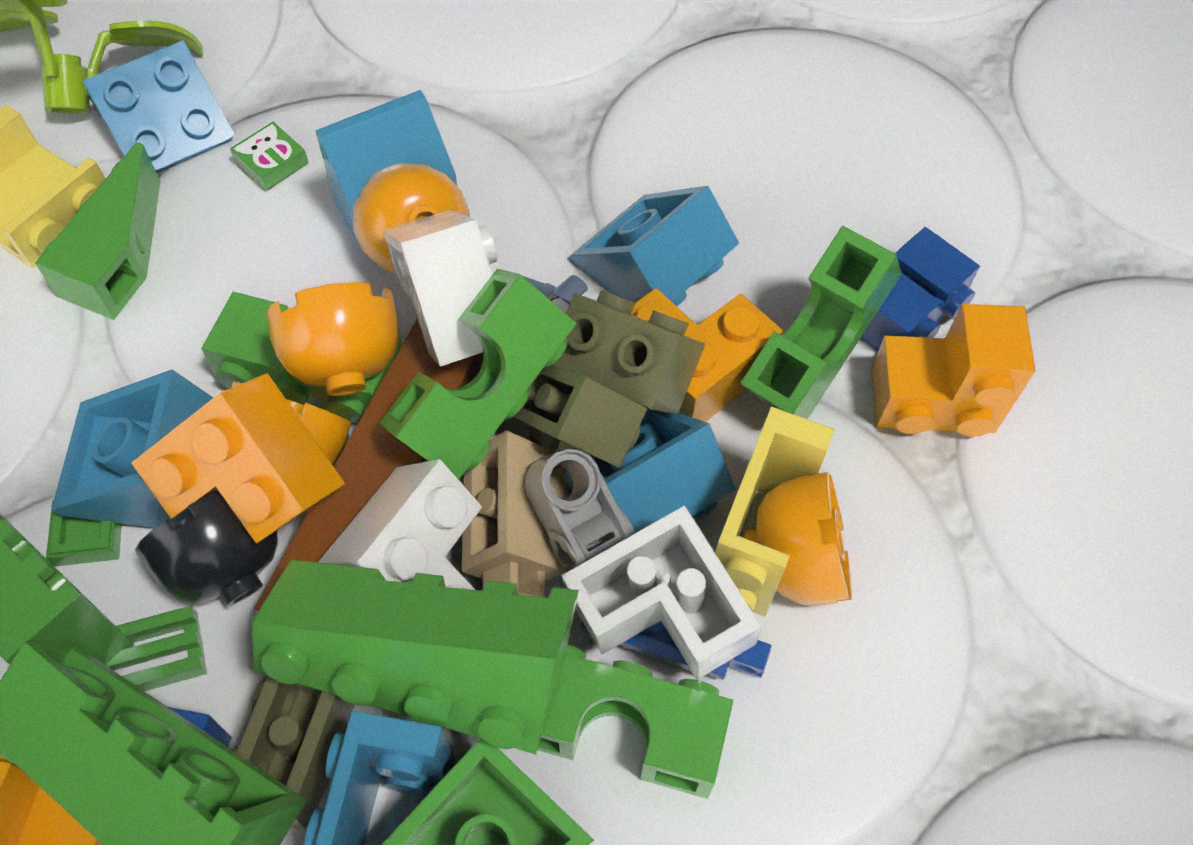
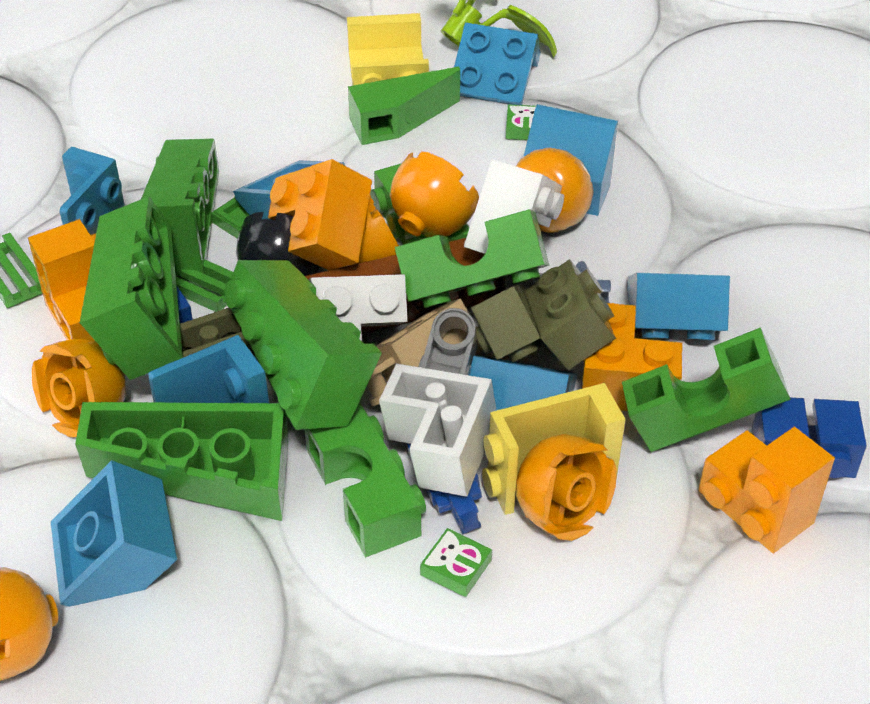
camera: 50 degrees right, 15 degrees down
(798, 716) = (456, 562): none -> tile

